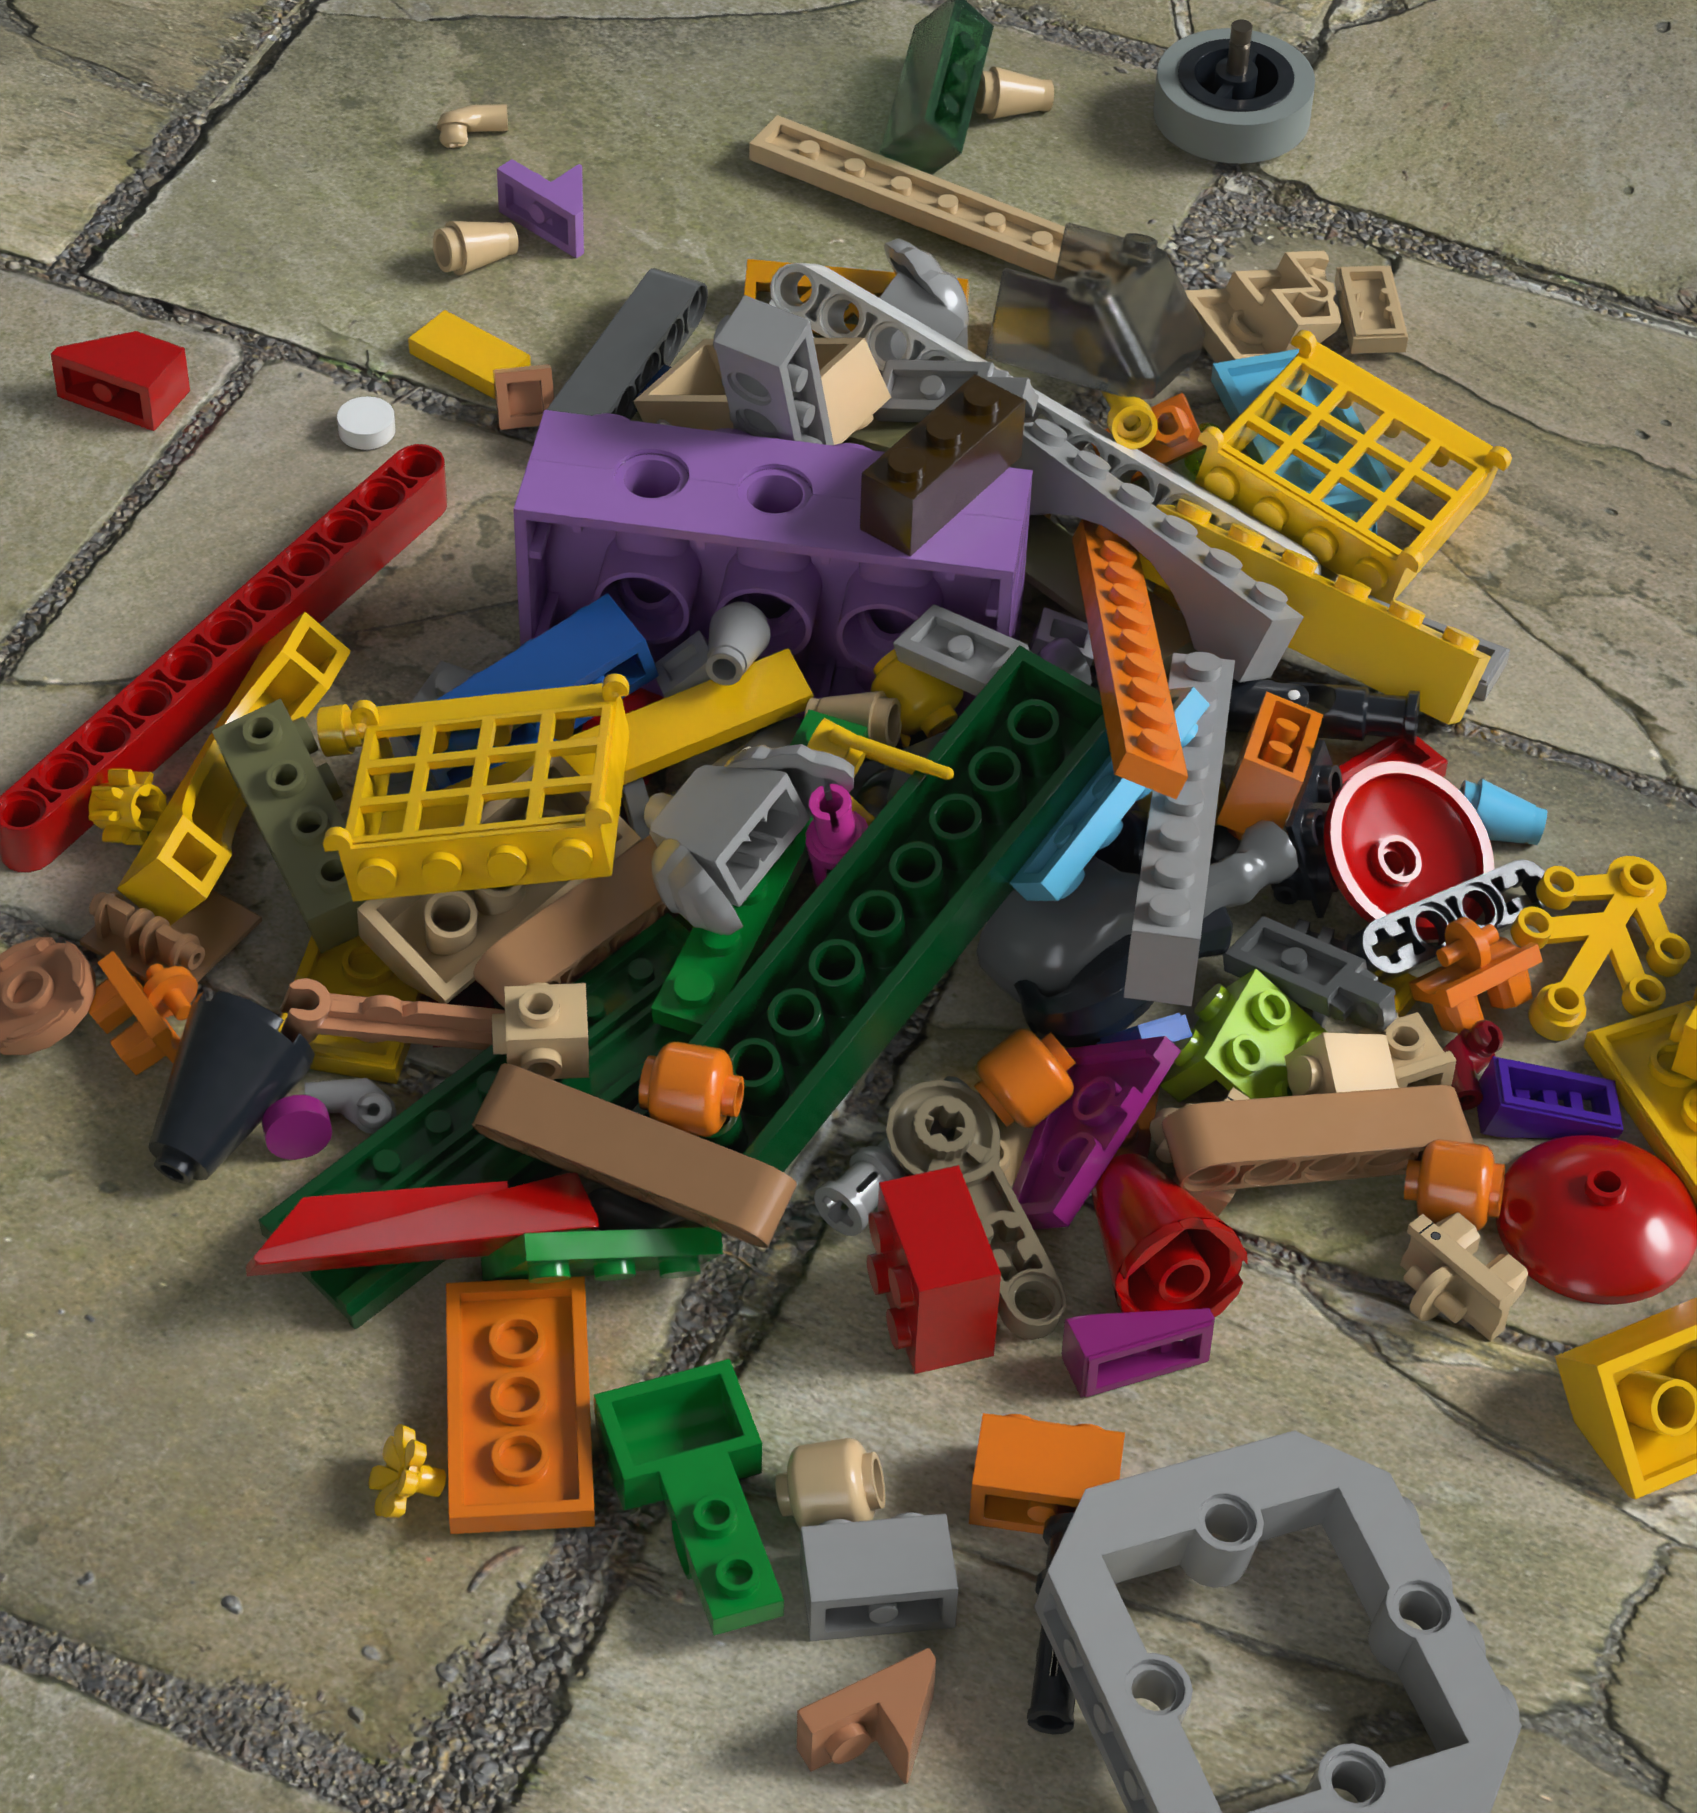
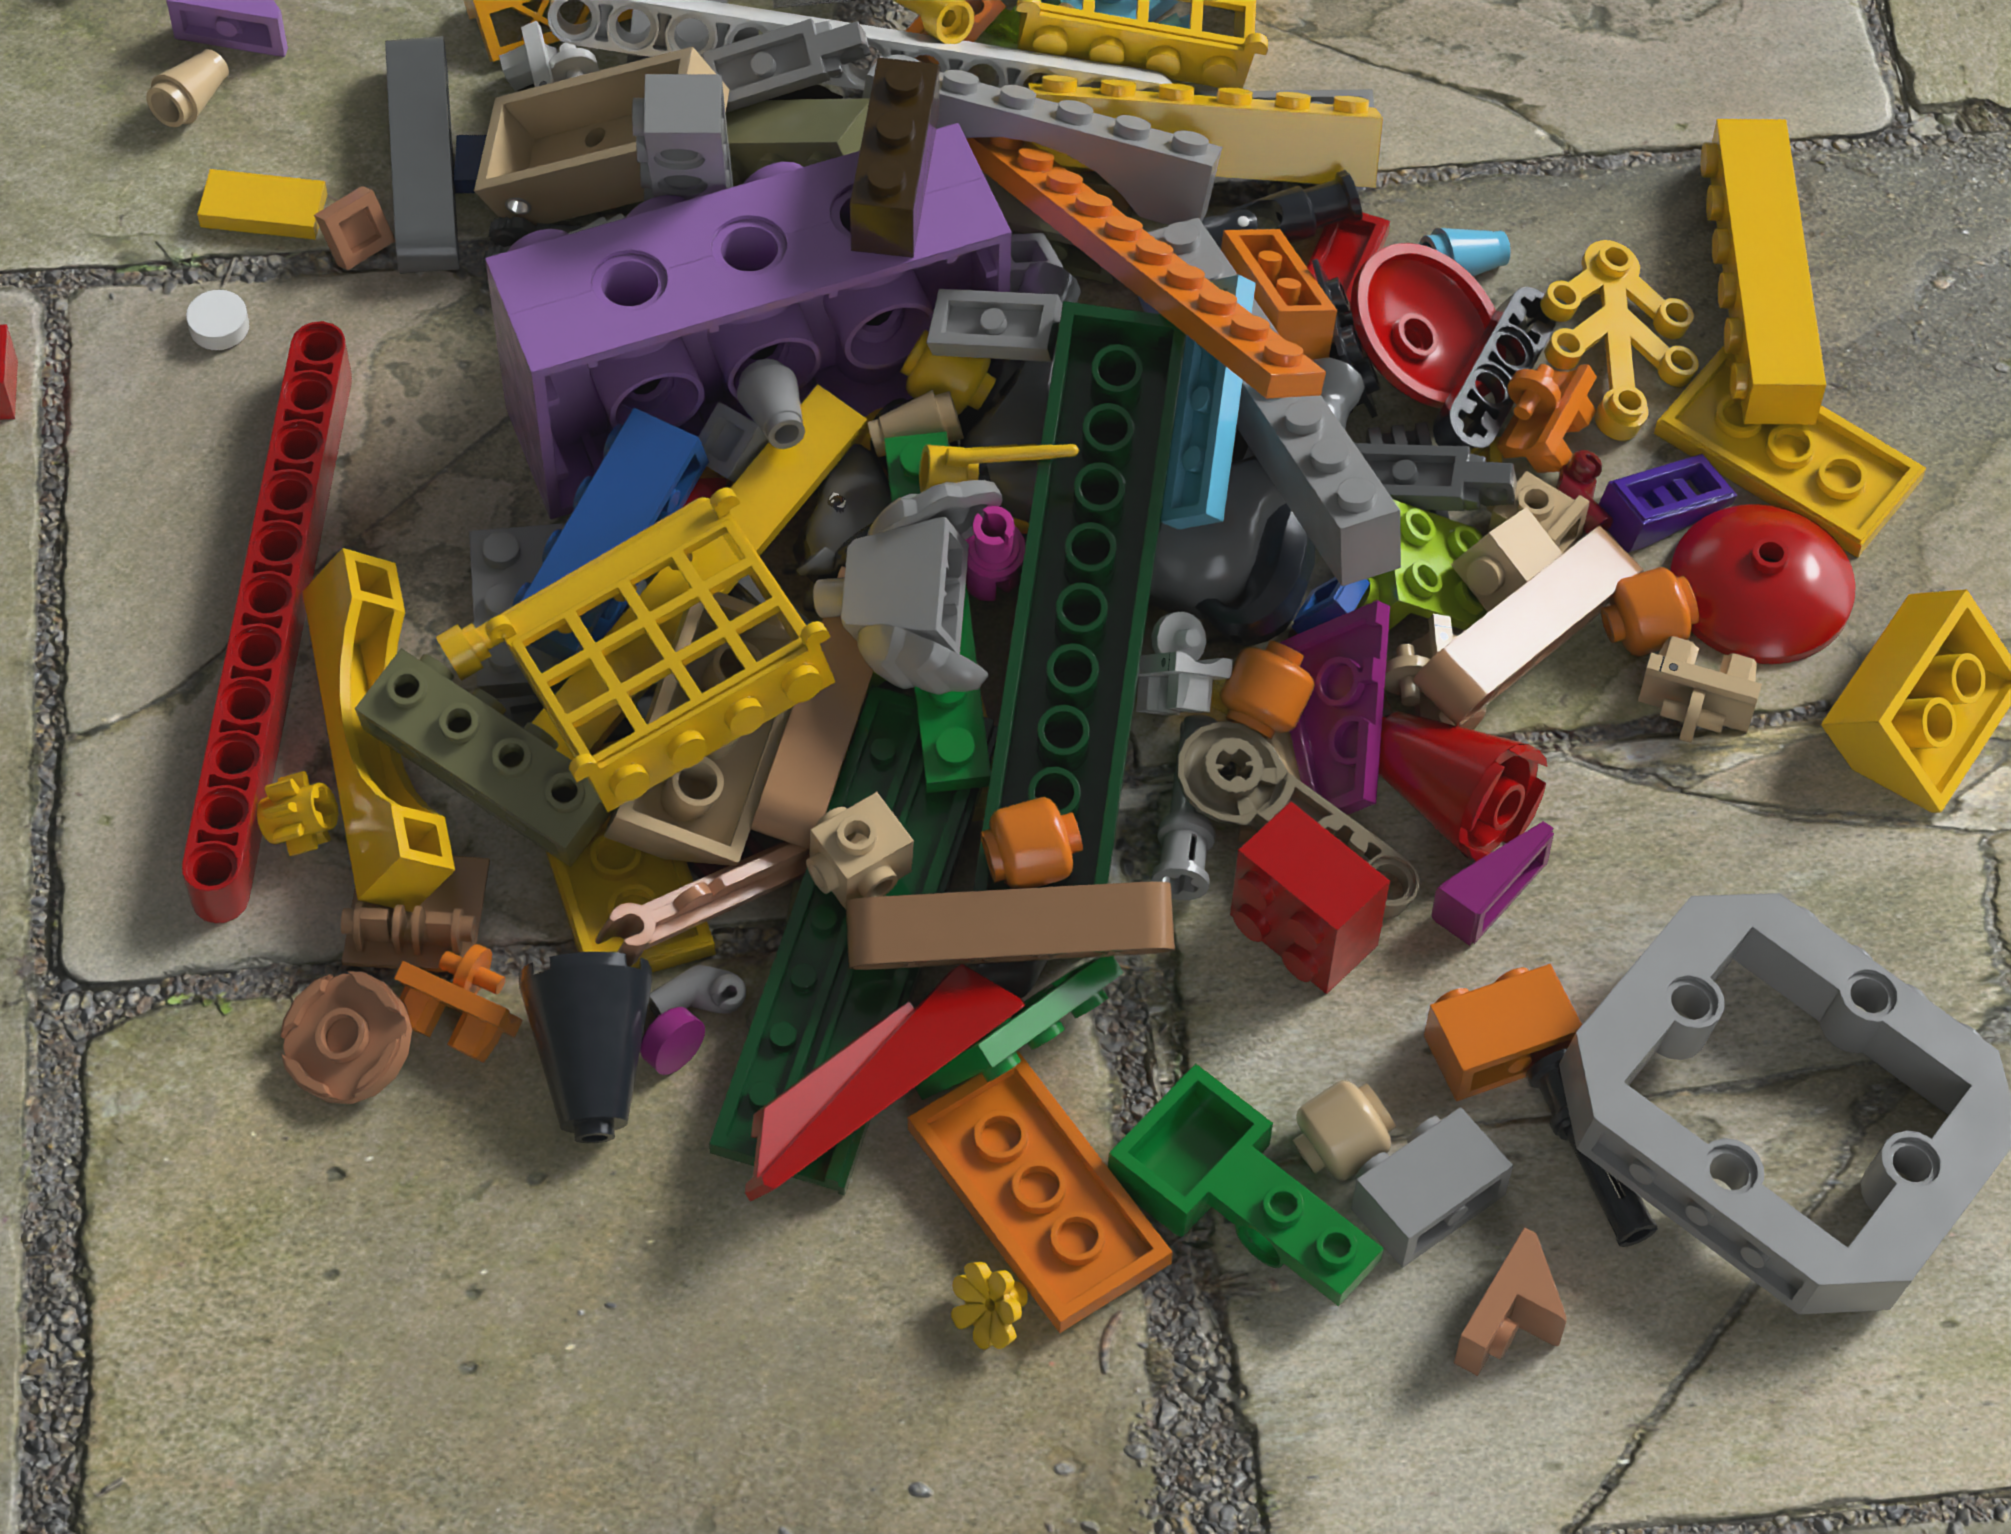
camera: 30 degrees left, 10 degrees up
(960, 1023) = (1174, 676): none -> white hips

